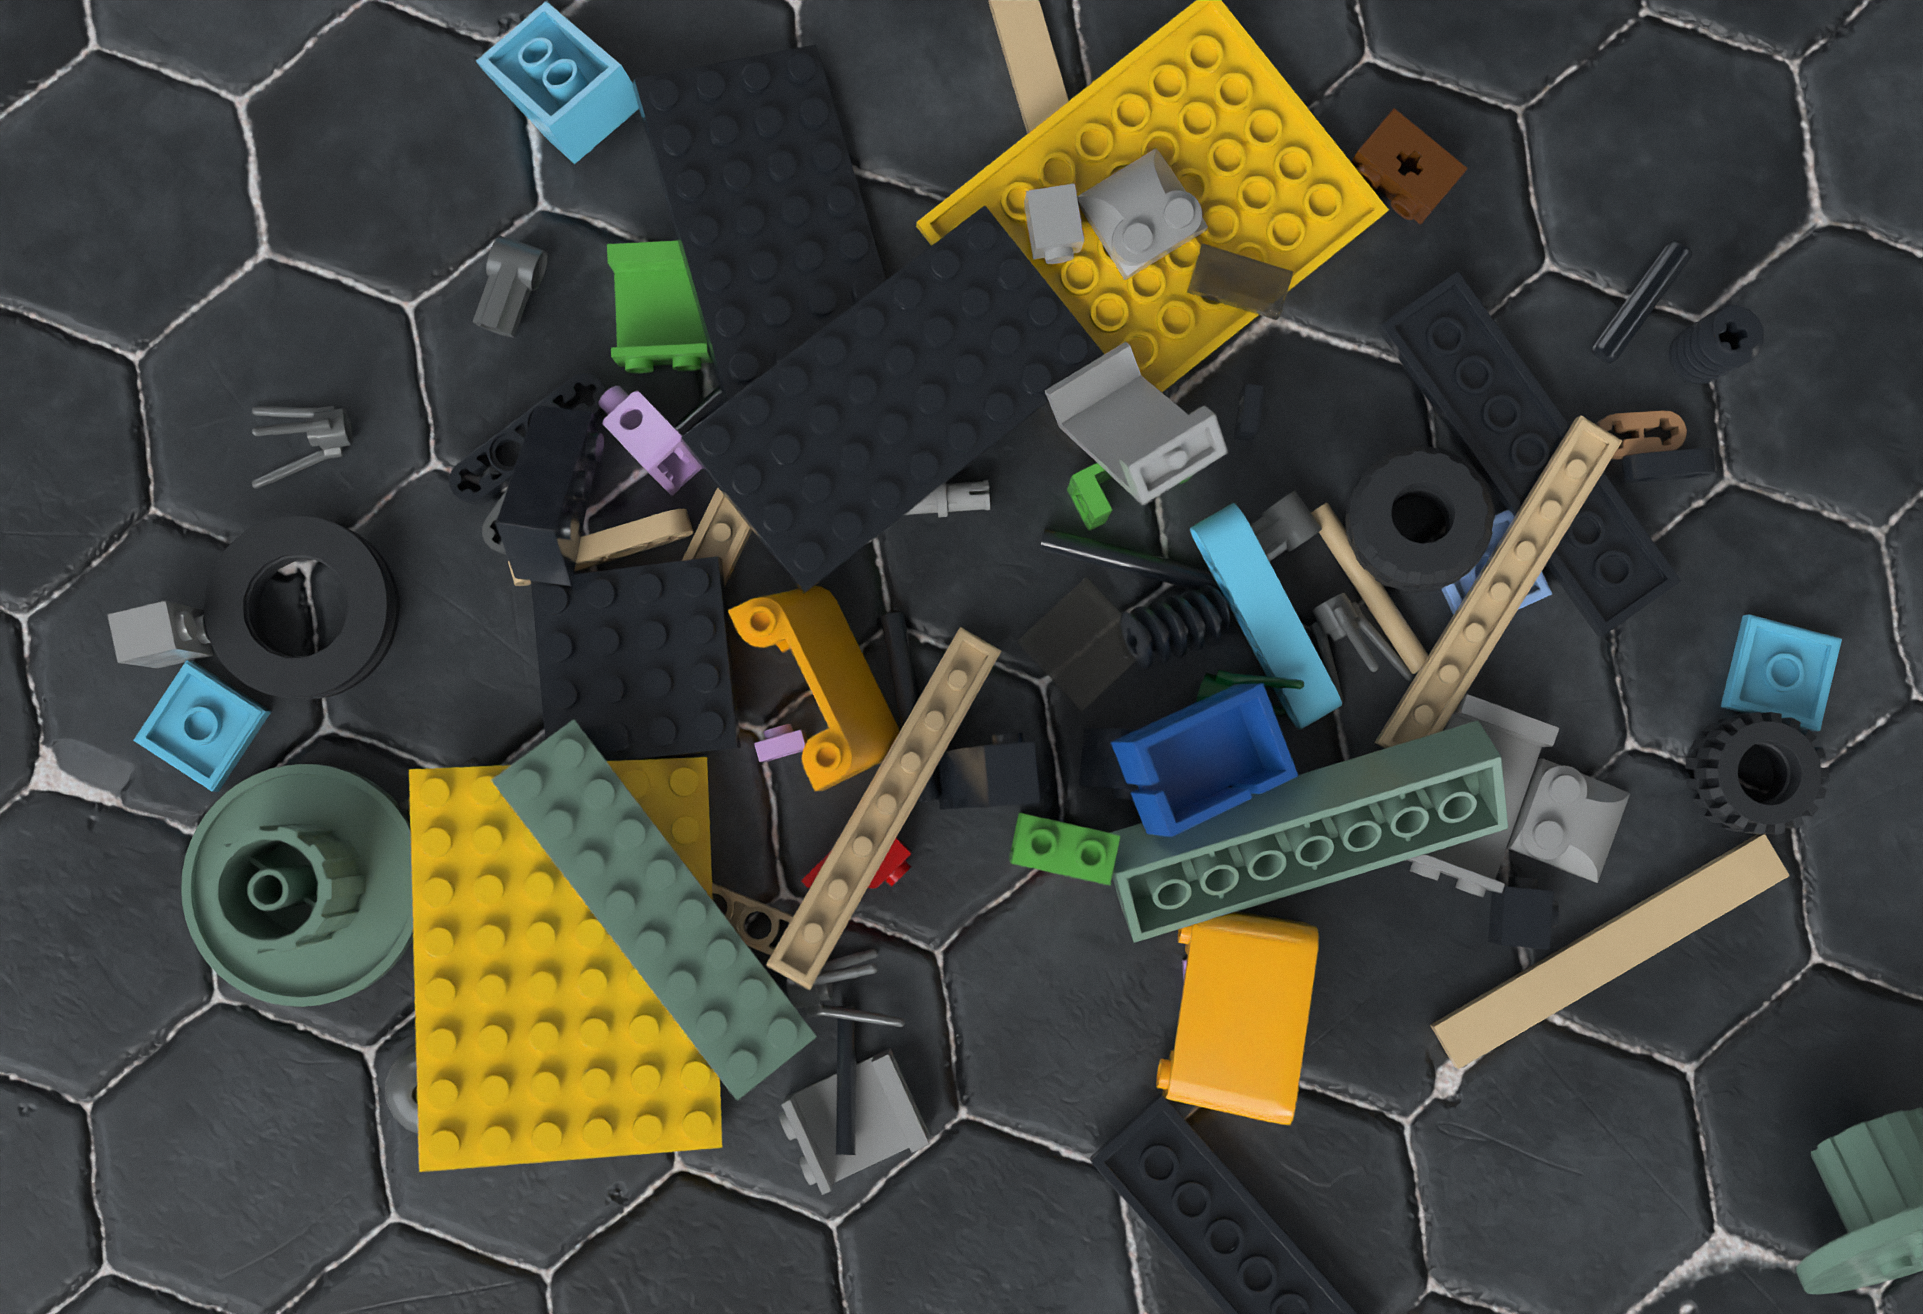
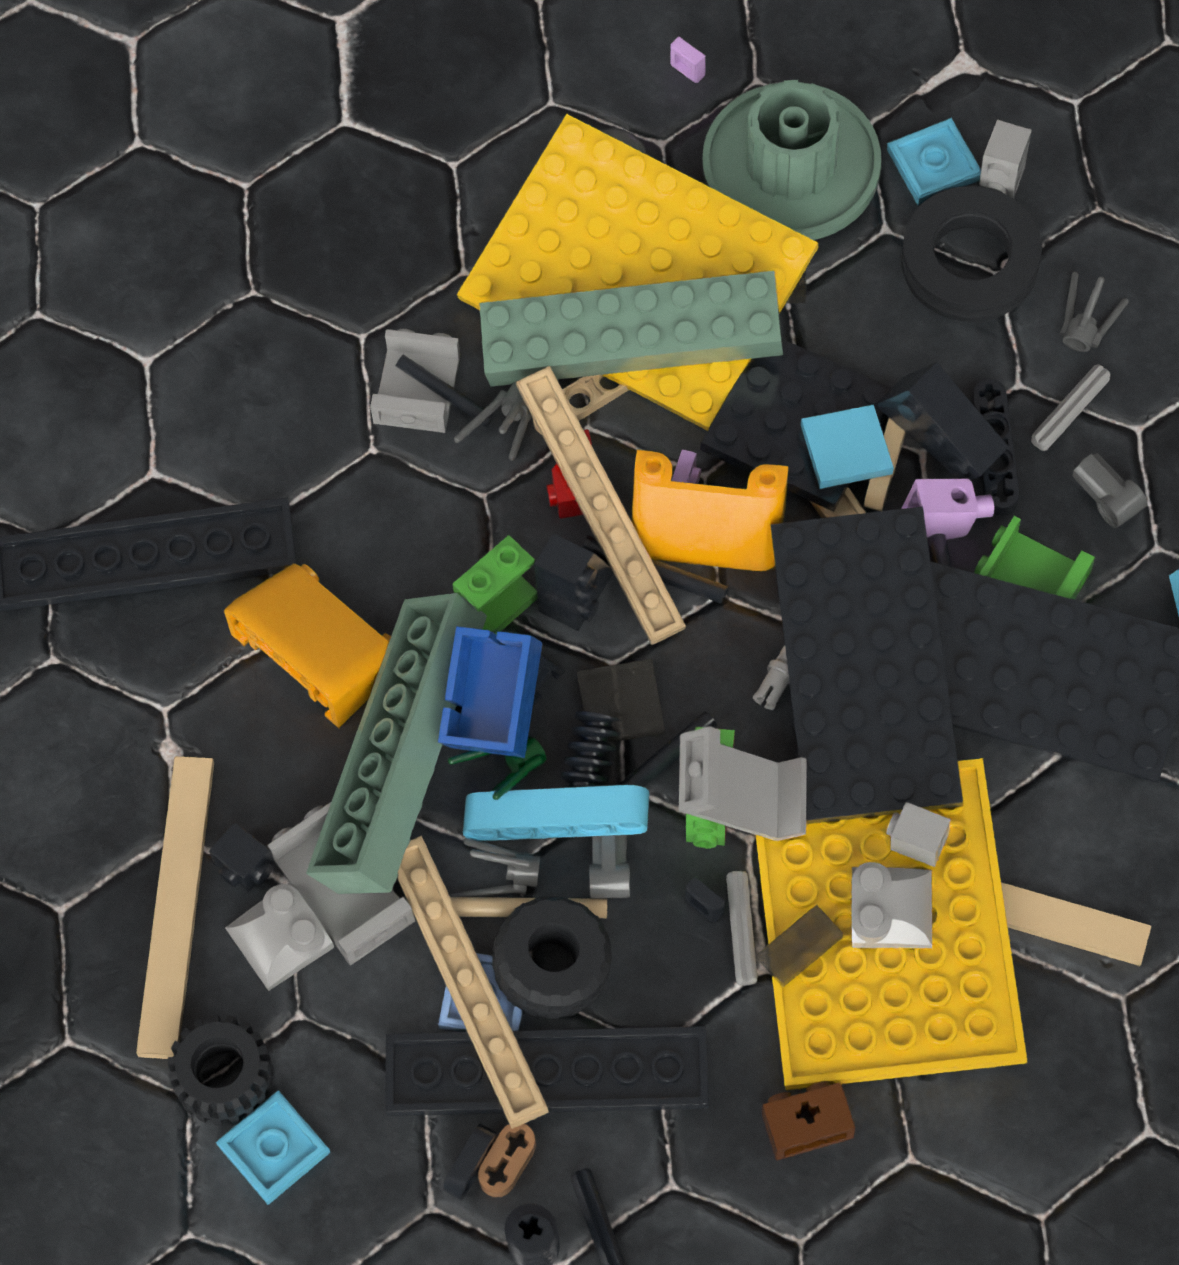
camera: 125 degrees right, 20 degrees down
(241, 1091) = (687, 60): none -> lavender tile
(430, 388) = (1070, 407): none -> light grey axle
(643, 582) = (846, 446): none -> medium azure tile
(1248, 360) = (741, 928): none -> light grey axle

